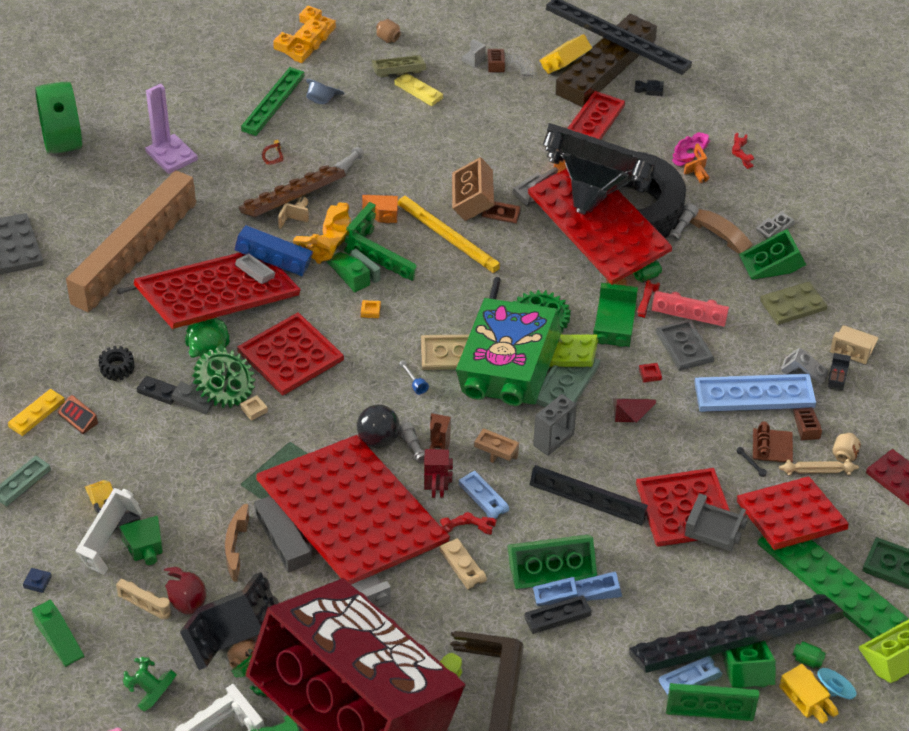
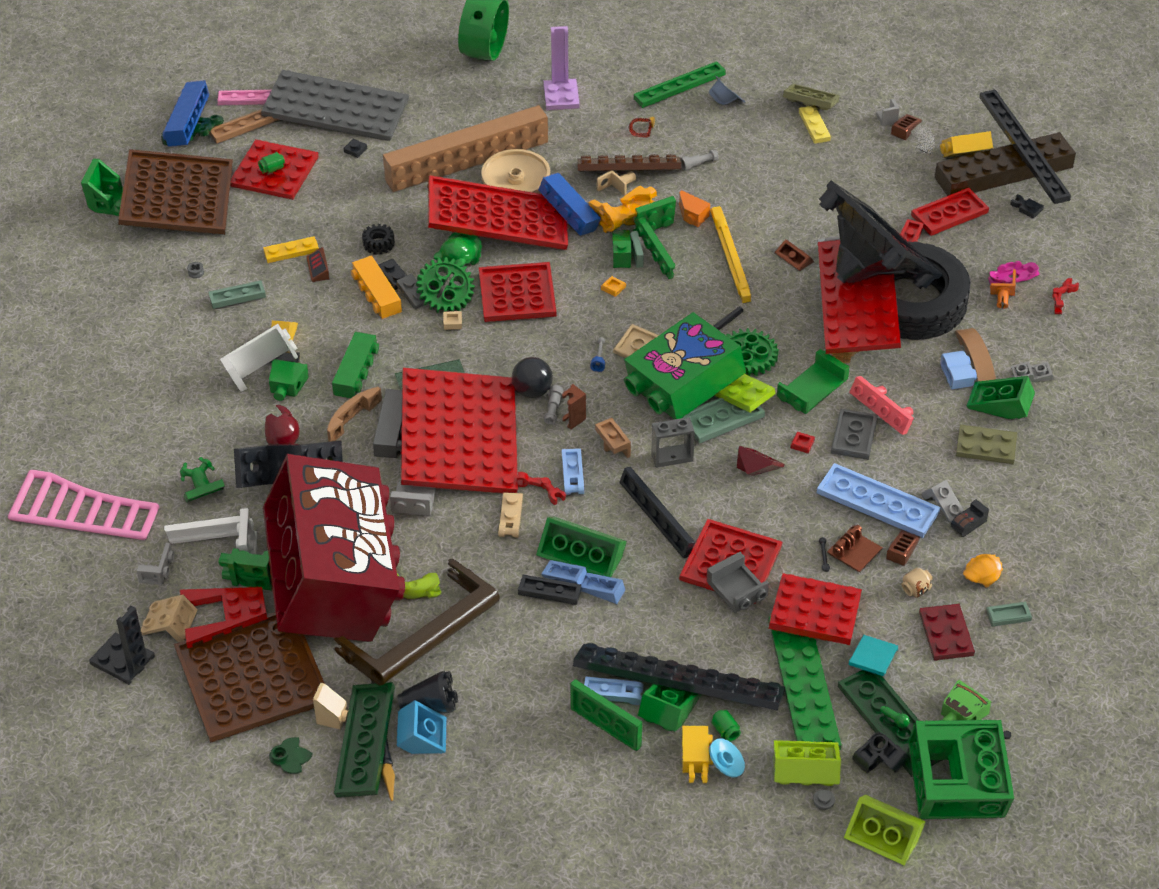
camera: 35 degrees right, 0 degrees up
(16, 286) = (355, 148): none -> black plate
(37, 580) = (190, 372): dark blue plate -> none
(57, 632) = (170, 414): green slope -> none
(144, 599) = (250, 422): tan plate -> none
(155, 409) = (376, 287): none -> light orange brick
(197, 241) = (515, 170): none -> tan dish
(200, 494) = (355, 365): none -> green brick
(255, 268) = (541, 211): light grey tile -> none
(308, 37) = (757, 42): light orange bracket -> none
(388, 31) = (829, 64): medium nougat head -> none
(437, 471) = (545, 434): dark red brick -> none
(472, 189) = (778, 224): medium nougat brick -> none
(648, 272) = (875, 358): green brick -> none
(649, 288) = (843, 386): red piece -> none
(689, 212) = (956, 326): light grey piece -> none
(719, 250) = (958, 369): none -> light blue brick
(818, 467) = (878, 587): tan wheel -> none
(854, 344) = (1007, 502): tan bracket -> none
(869, 528) = (873, 655): none -> teal piece
(887, 409) = (983, 569): none -> light orange hair

